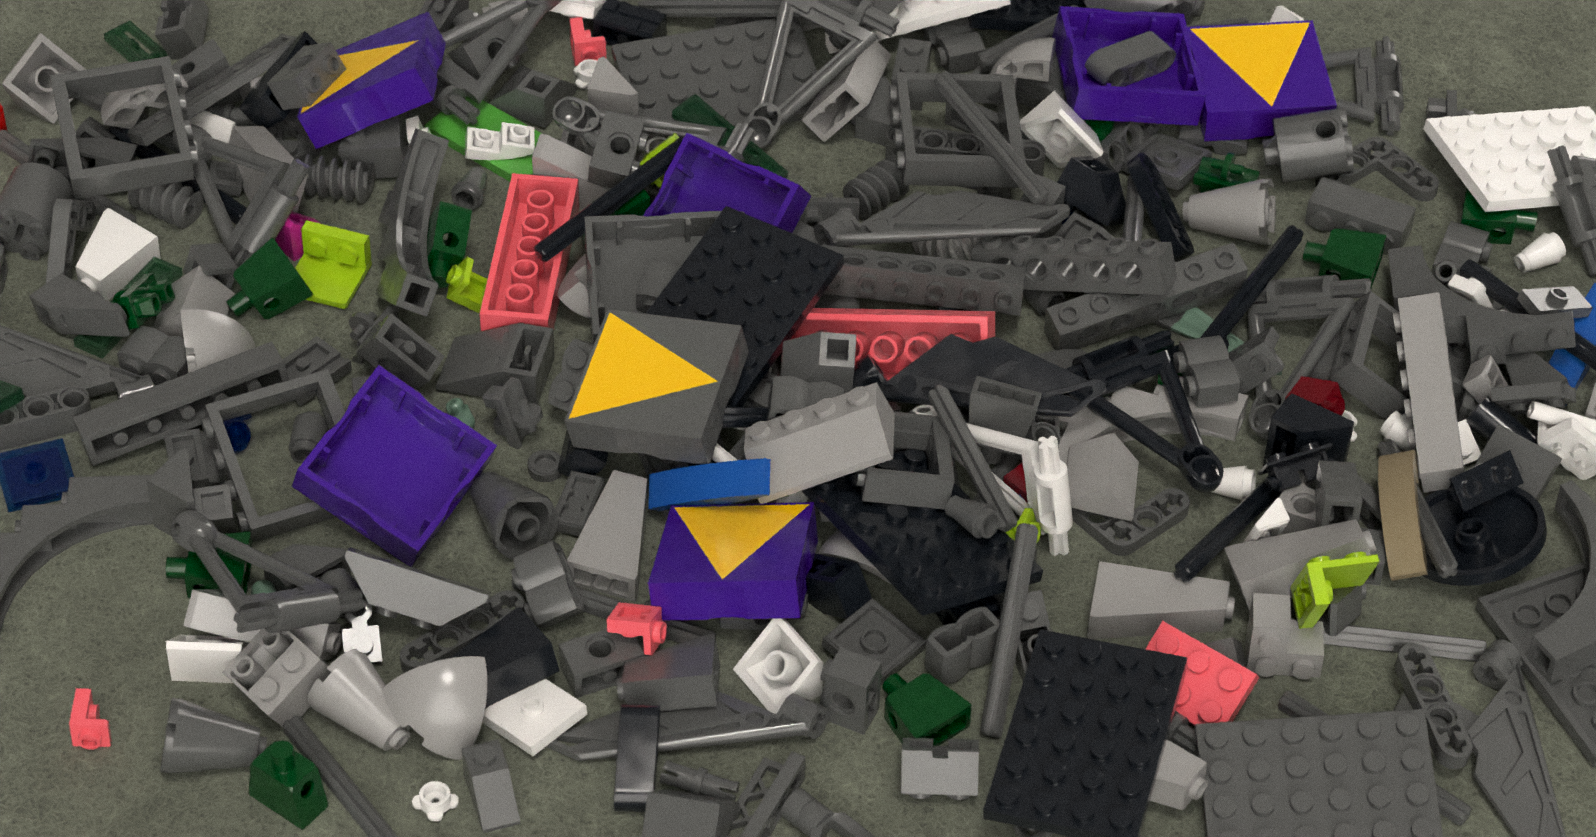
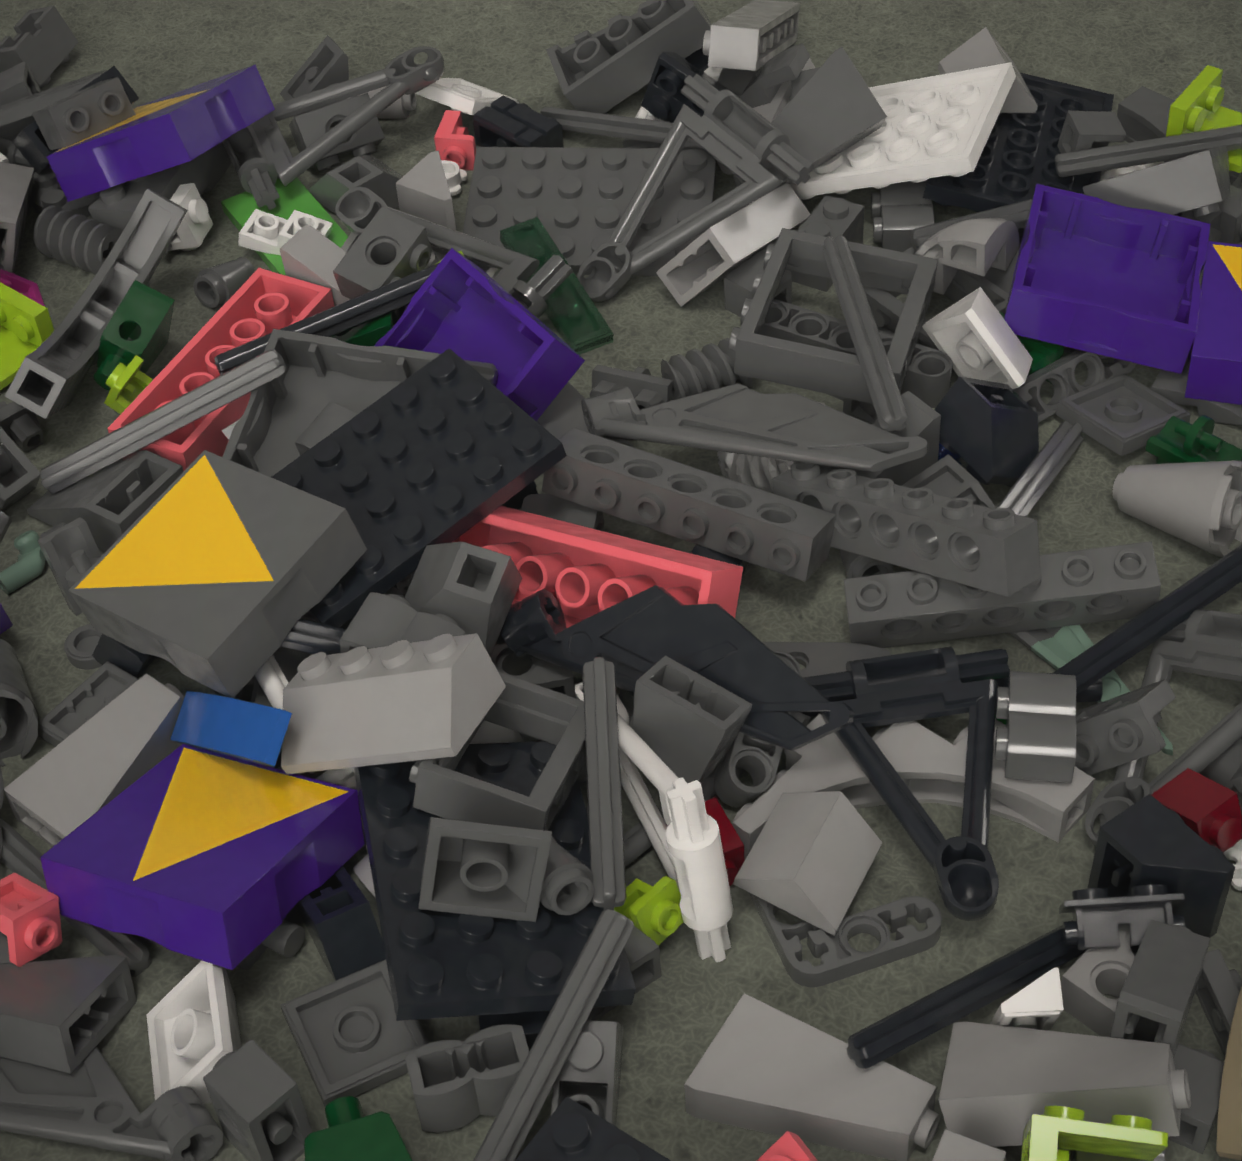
camera: 25 degrees right, 0 degrees up
(528, 300) = (163, 421): none -> dark grey axle
(936, 517) = (483, 869): none -> dark grey slope
(1130, 60) = (1113, 270): dark grey beam -> none
(1160, 206) = (1082, 473): black beam -> none
(1237, 482) = (1026, 911): white cone -> none

